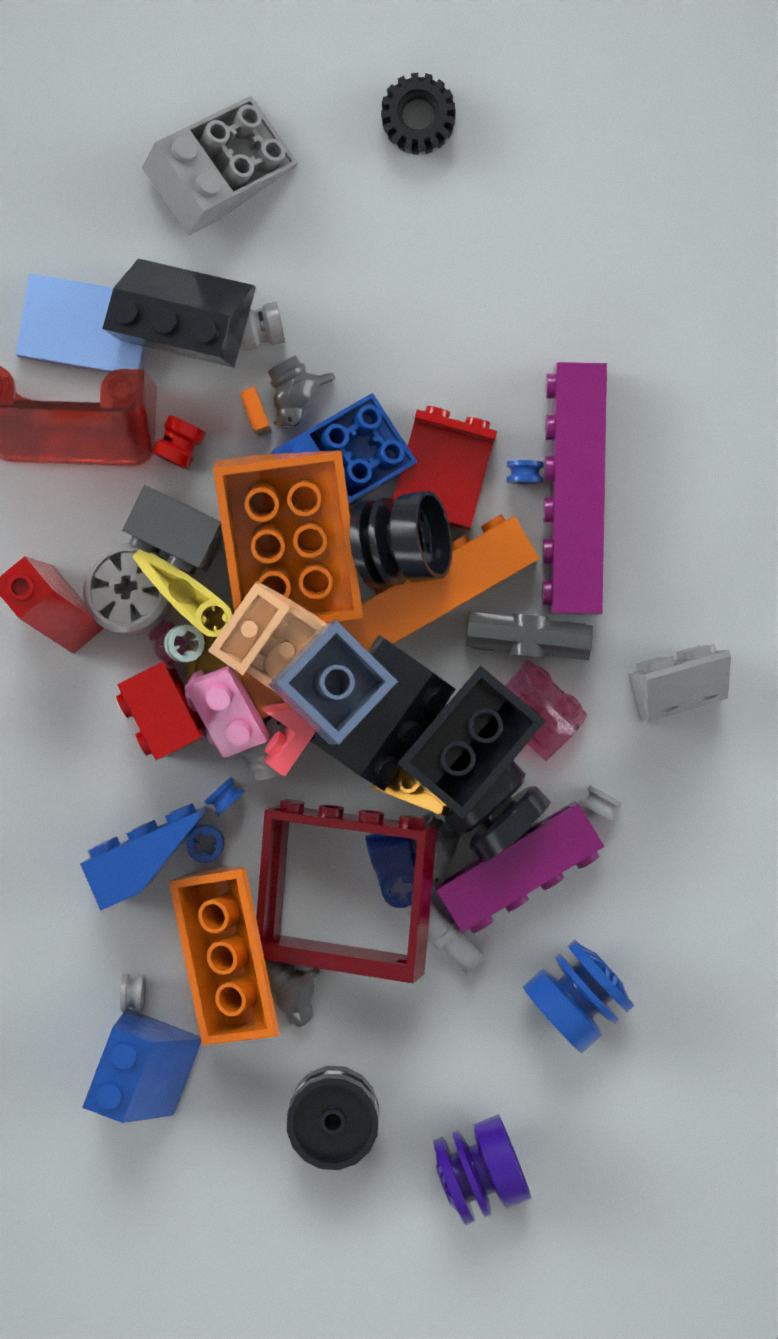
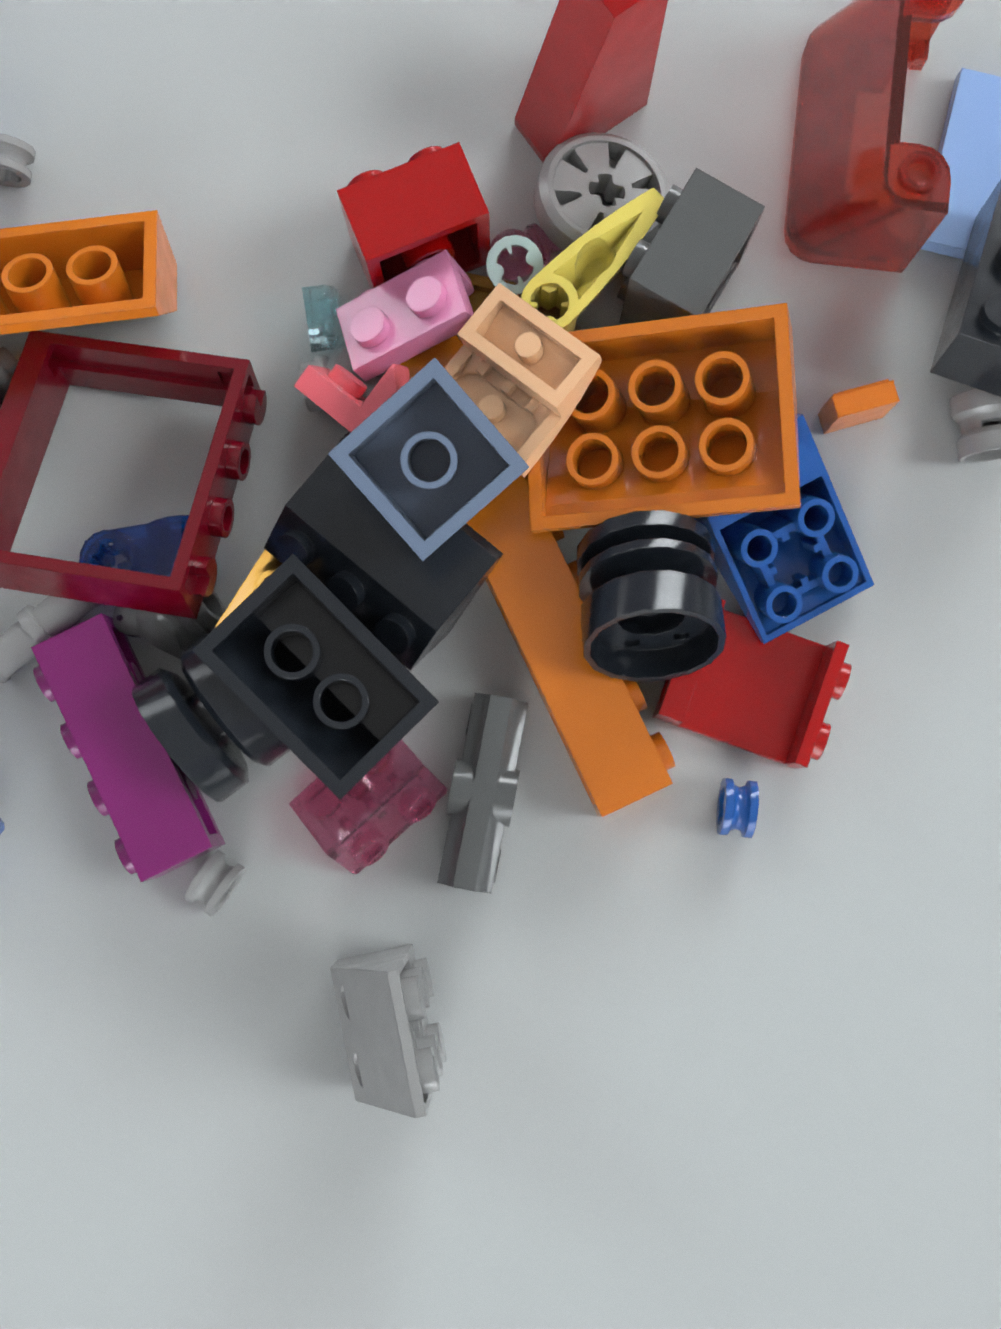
camera: 105 degrees right, 5 degrees down
(128, 867) = (197, 168): blue slope -> none
(178, 442) = (818, 289): red wheel -> none
(205, 855) = (196, 285): blue bush -> none
(216, 770) = (320, 311): none -> clear light blue tile
(224, 796) = (281, 315): blue bush -> none
(294, 390) = (887, 466): dark grey animal -> none
(576, 488) = (709, 887): magenta brick -> none

